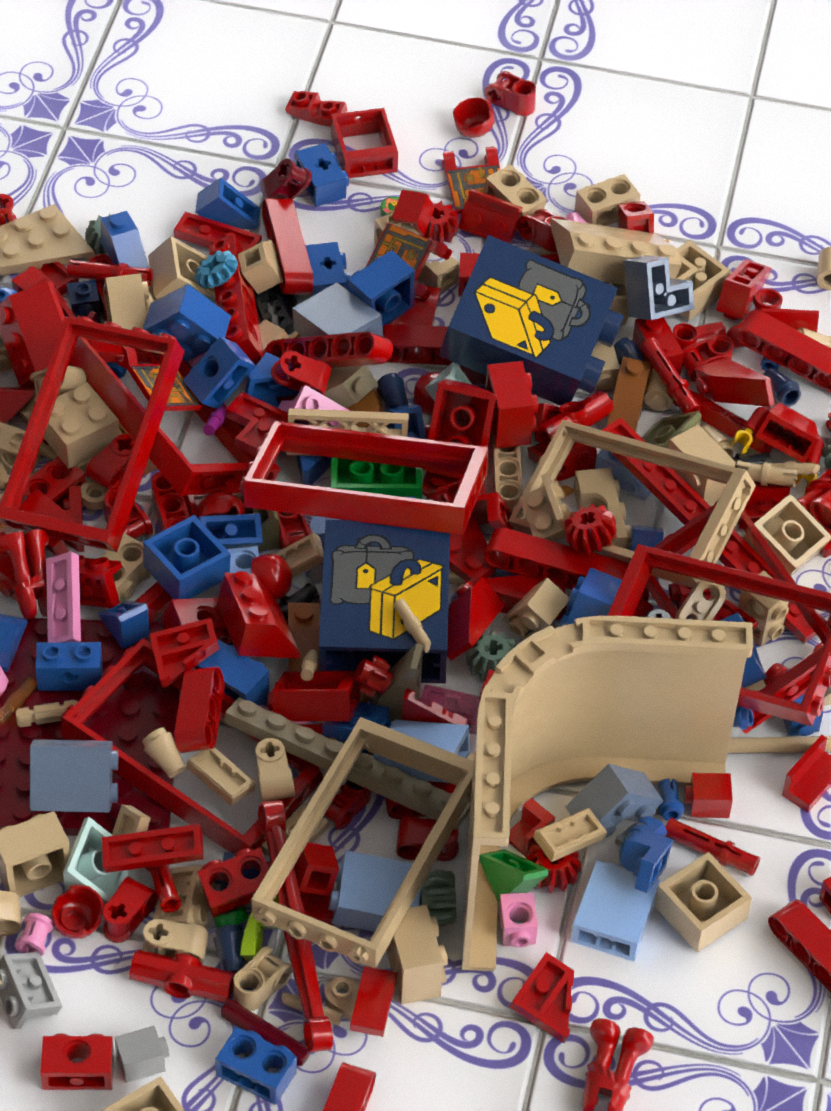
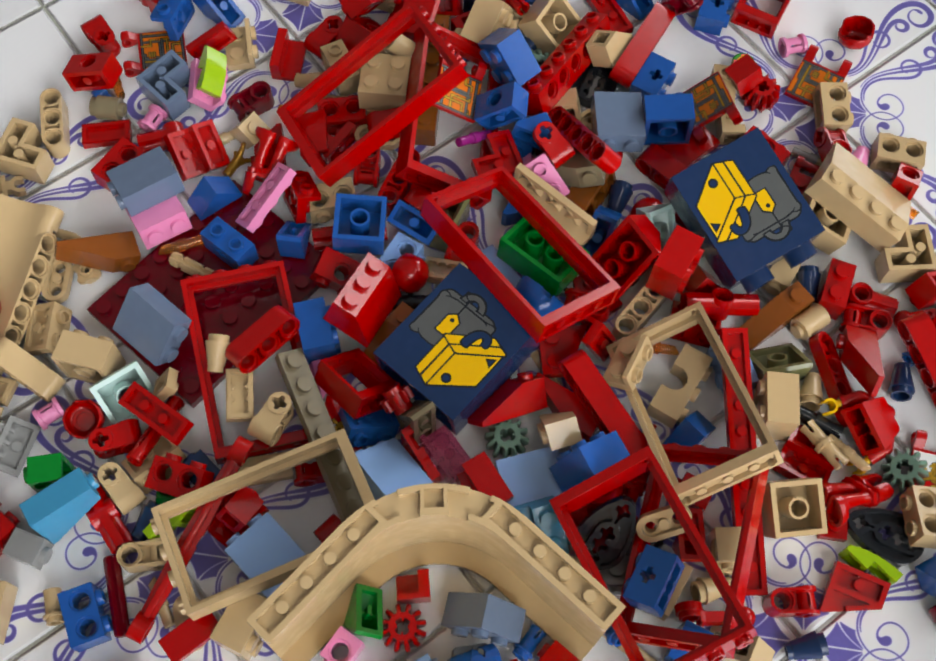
camera: 40 degrees right, 15 degrees up
(103, 972) = (46, 470): none -> green brick
(144, 981) = (61, 504): none -> dark azure slope
(182, 648) = (292, 287): red wing -> none
(216, 269) = (568, 31): dark azure gear -> none
(222, 1087) = (53, 613): none -> tan pin
(309, 665) = (365, 360): tan piece -> none
(412, 624) = (444, 385): tan piece -> none
(425, 163) = (785, 44): none -> bright pink bush
(489, 216) = (800, 112): red plate -> none
(514, 92) = (901, 32): red piece -> none
(570, 834) = (422, 621): tan plate -> none
(590, 529) = (639, 401): red gear -> none
(652, 291) = (860, 248): sand blue brick -> none
(676, 386) = (817, 322): red pin -> none
(778, 650) = (705, 590): none -> tan cone

